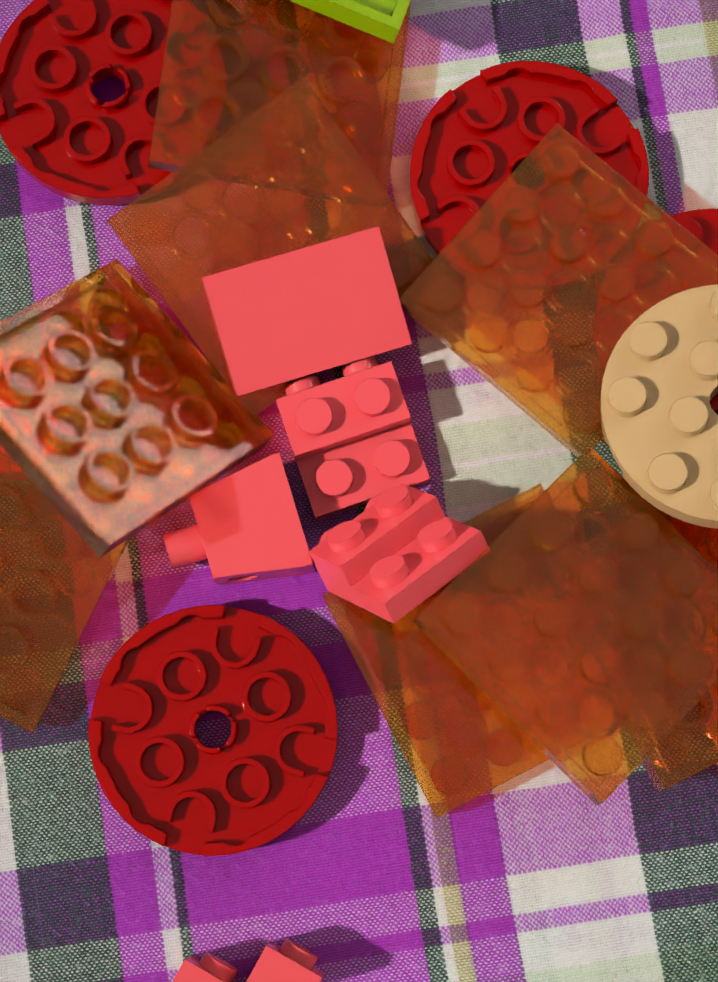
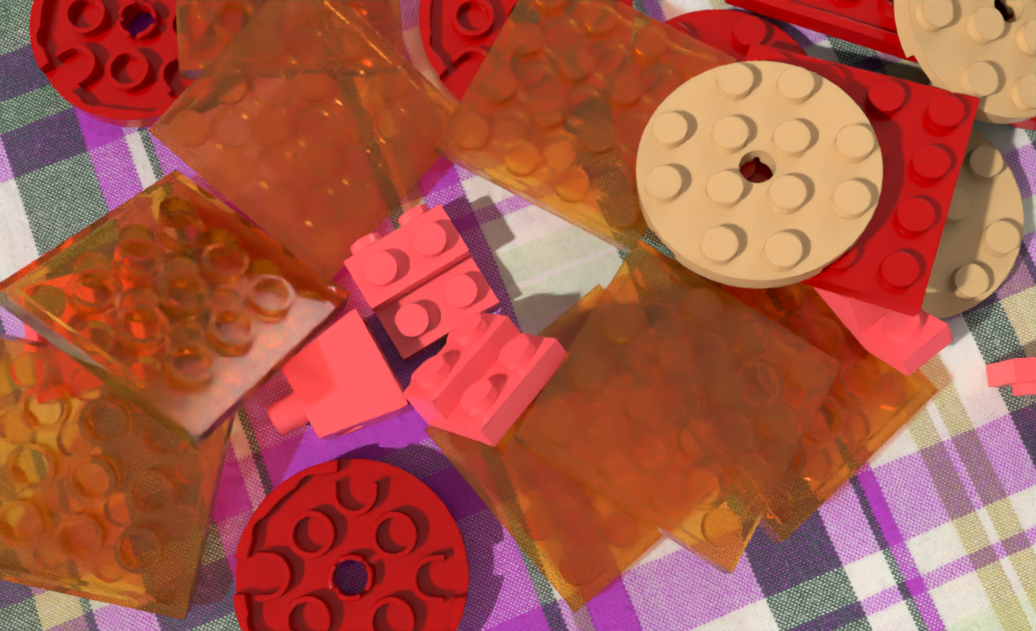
camera: 15 degrees left, 0 degrees up
(306, 310) = (352, 174): coral tile -> none

